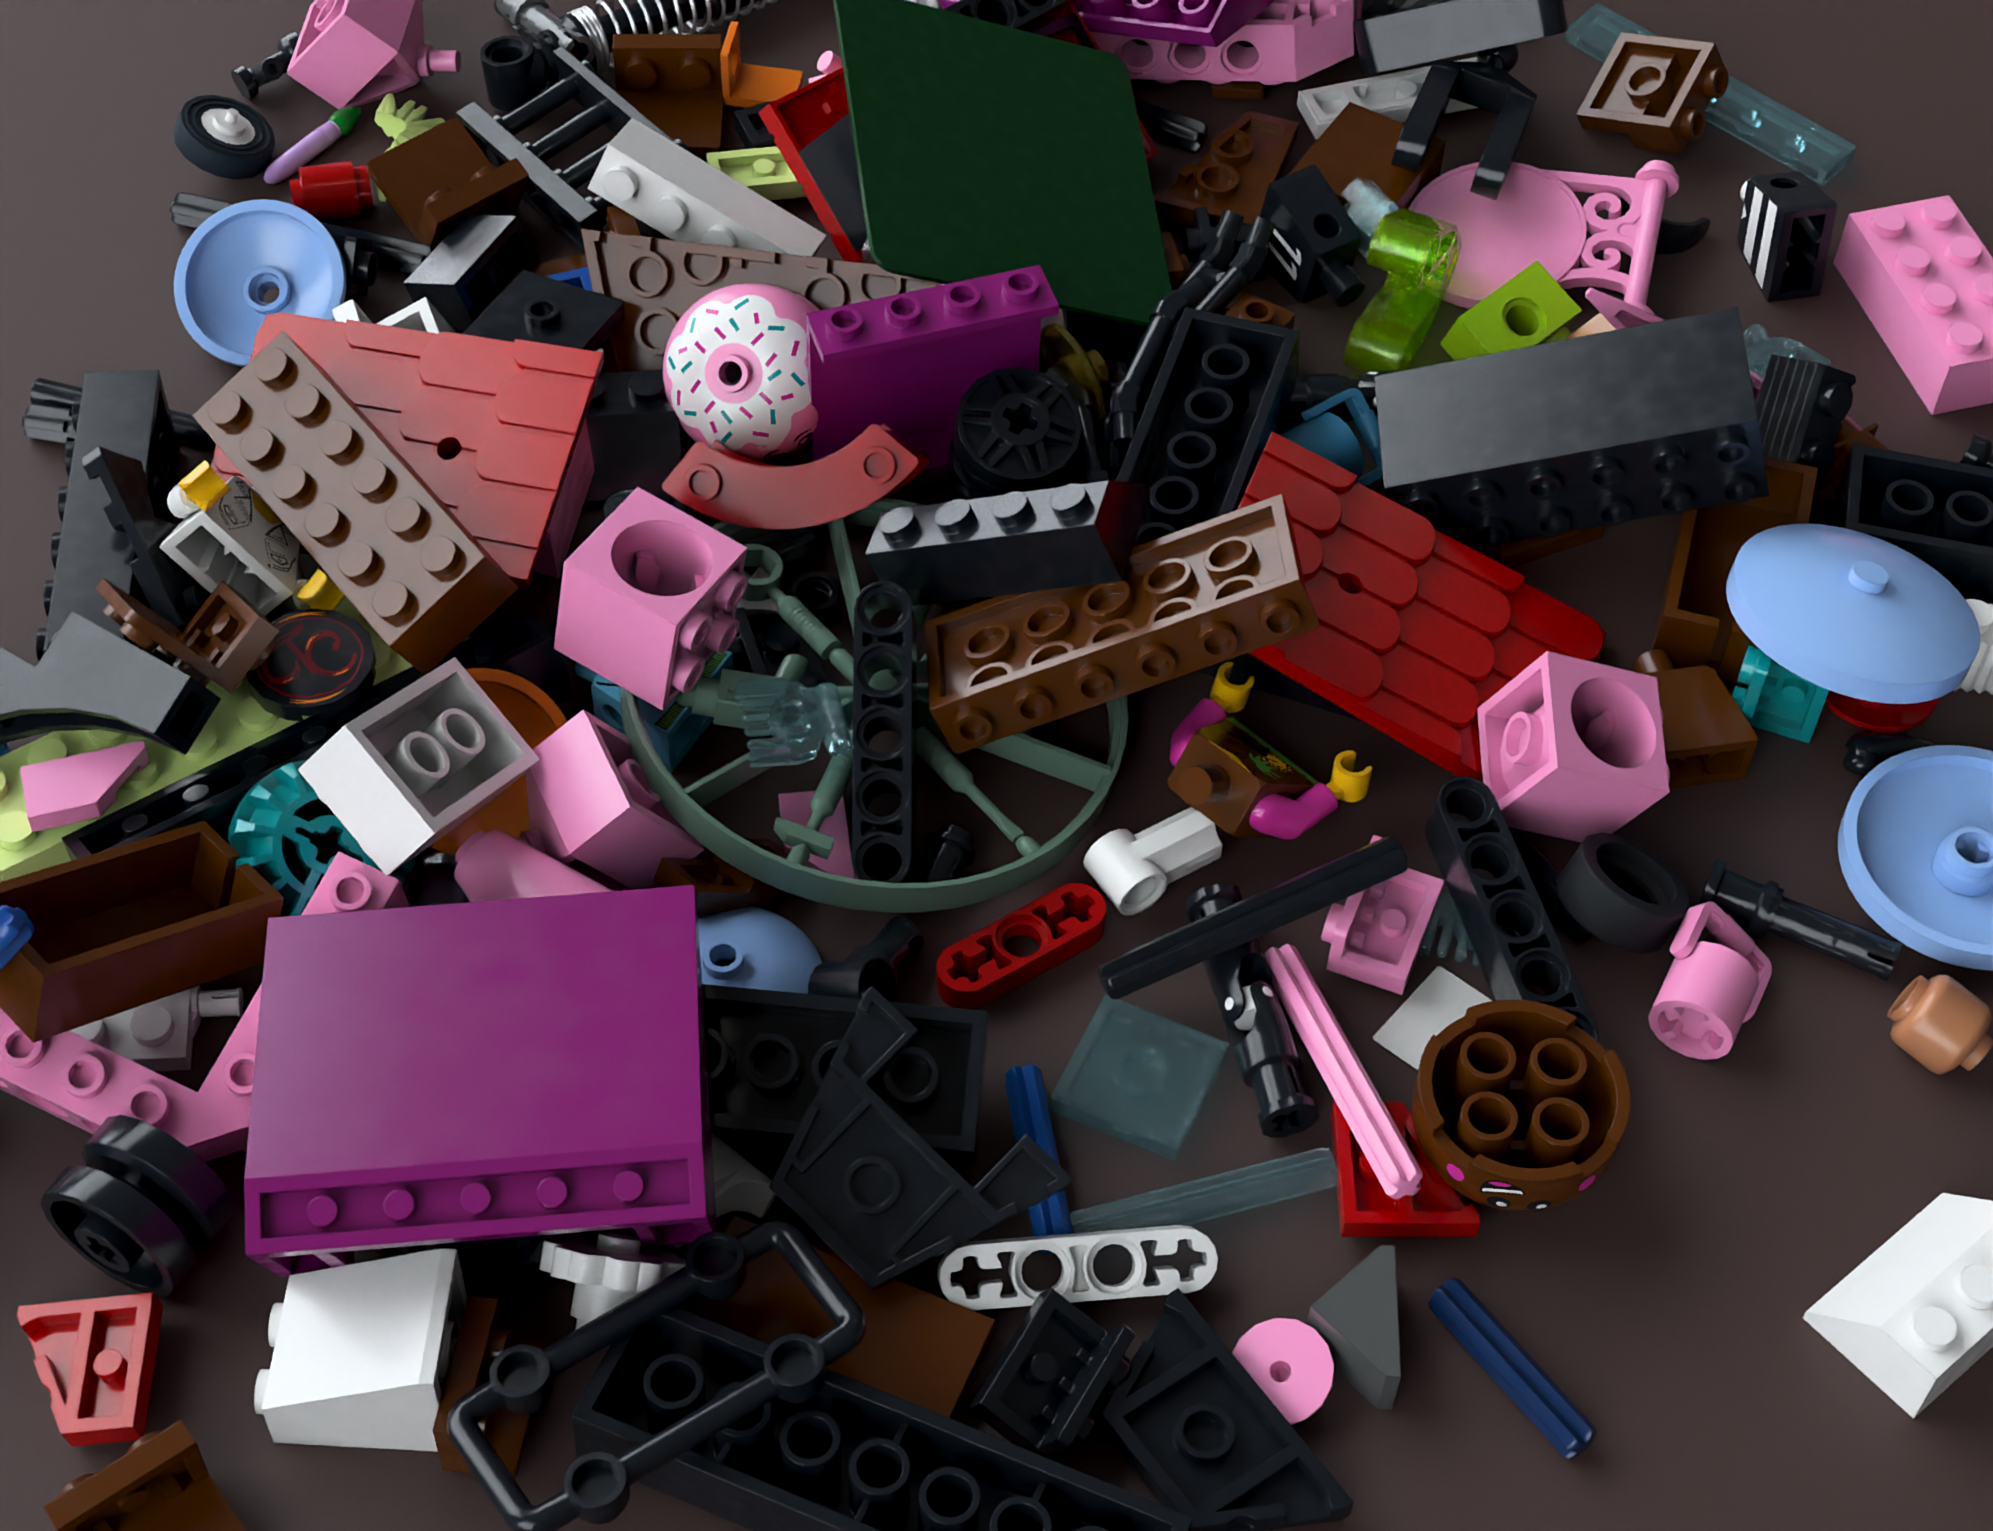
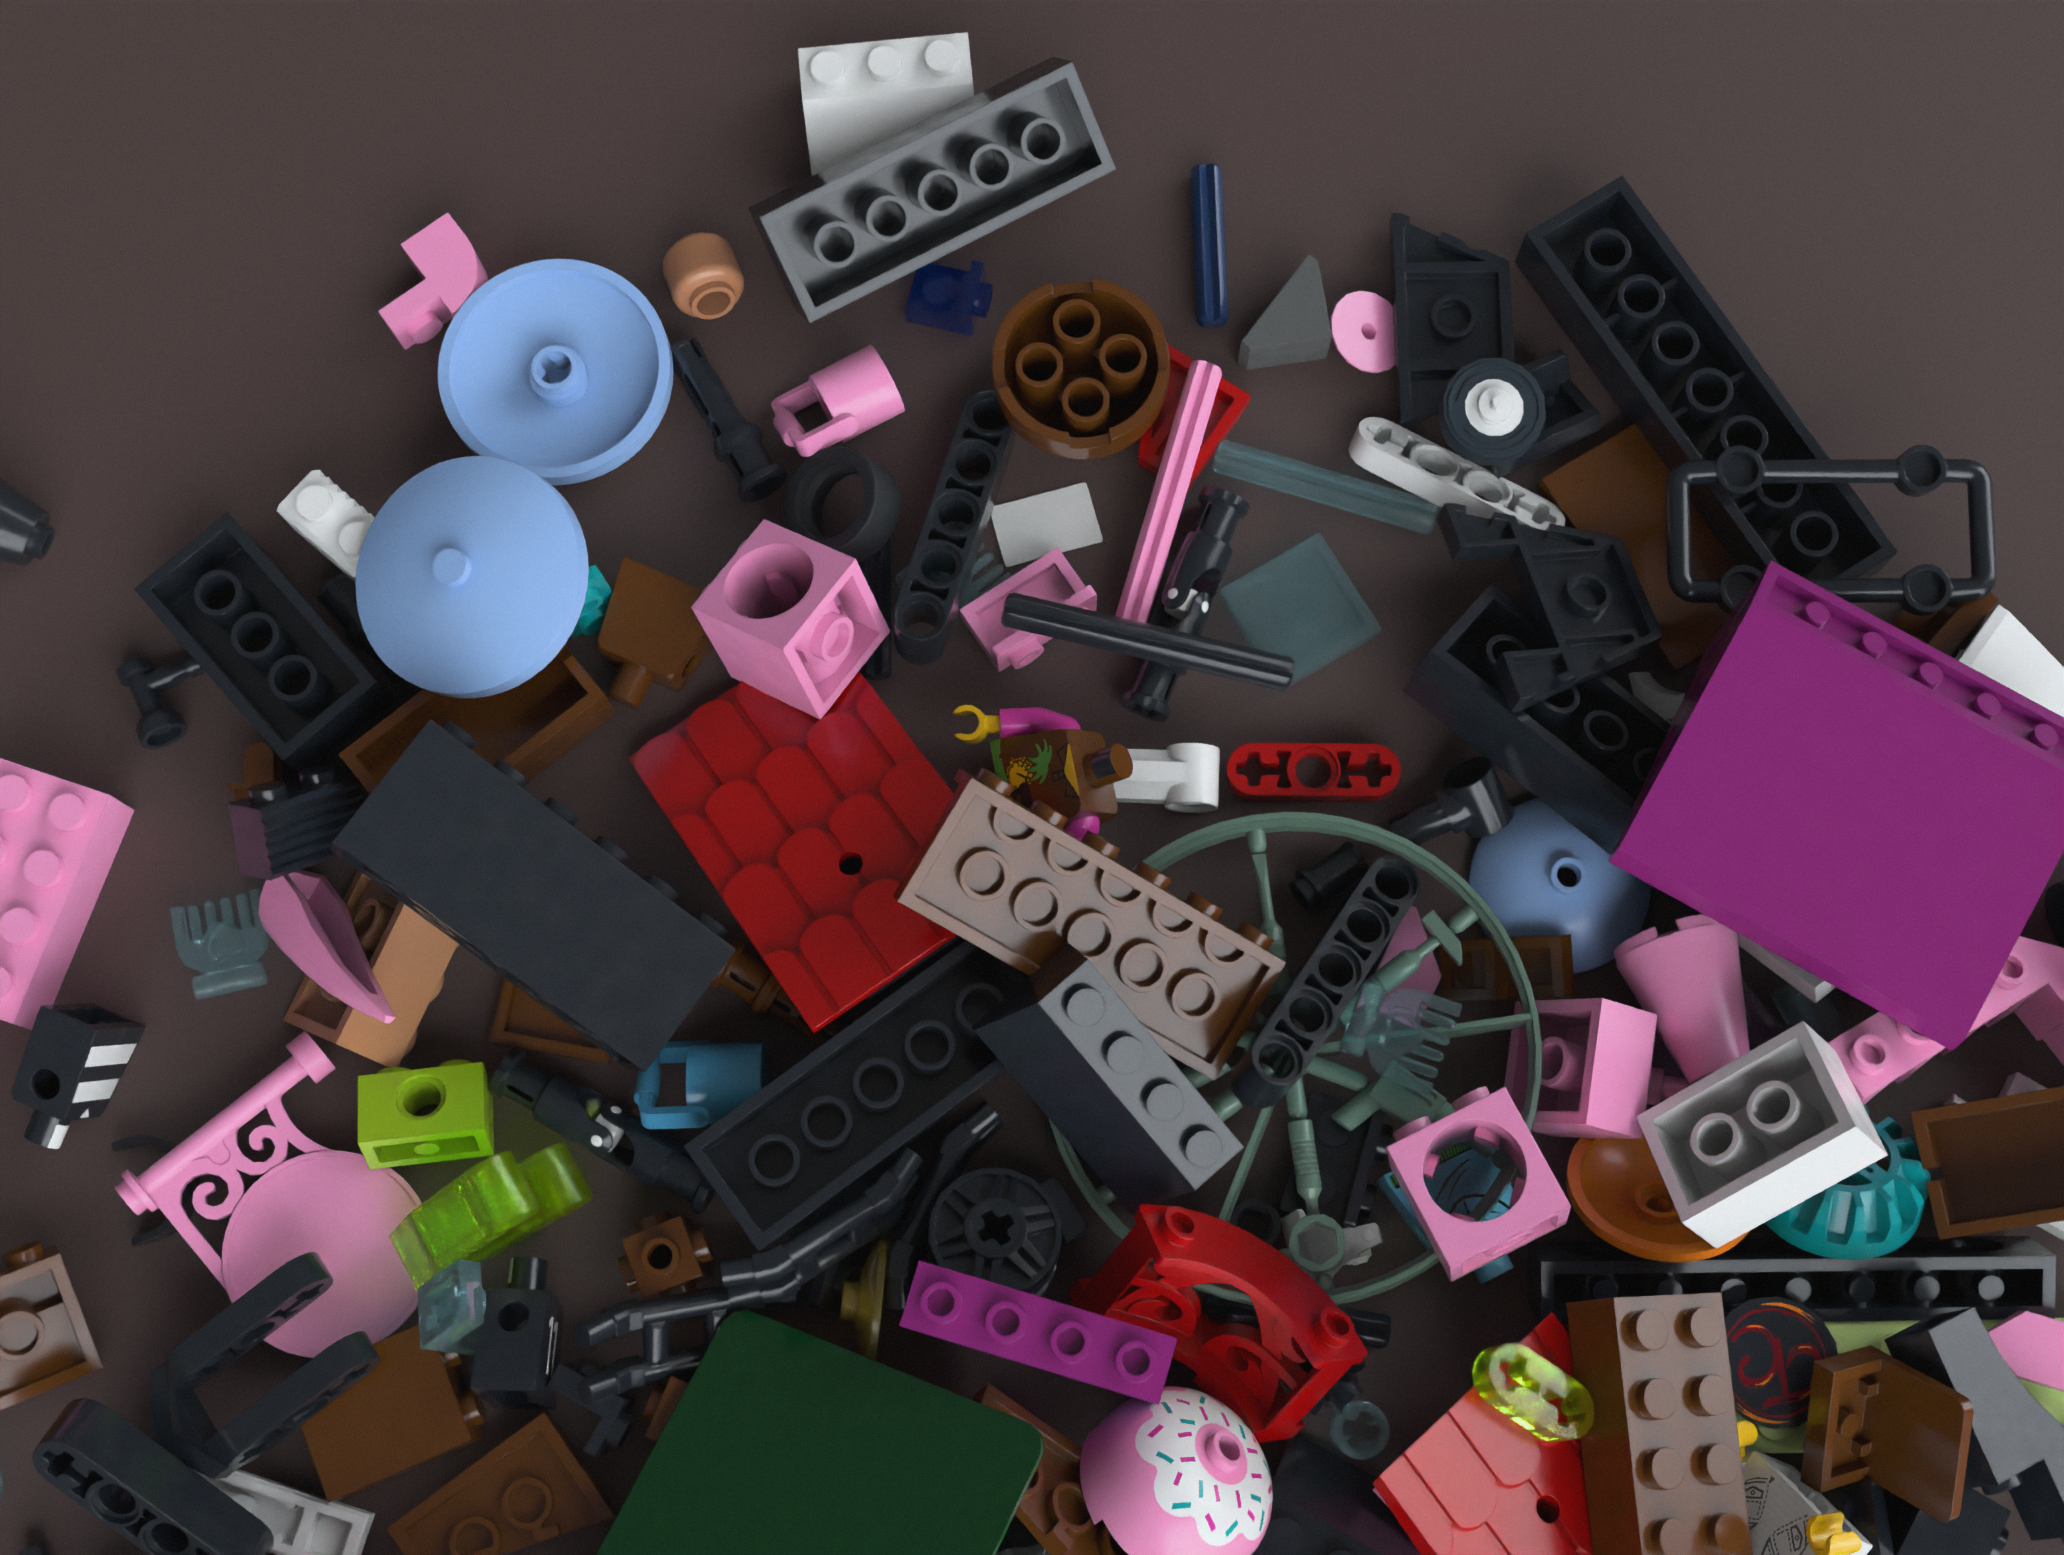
camera: 140 degrees left, 25 degrees up
(509, 492) = (1540, 1383): none -> clear neon green beam
(1032, 1117) = (1414, 603): blue axle -> none
(1092, 1315) = (1491, 411): none -> black wheel
(1708, 1156) = (949, 297): none -> clear blue bracket
(1813, 1210) = (933, 188): none -> black brick

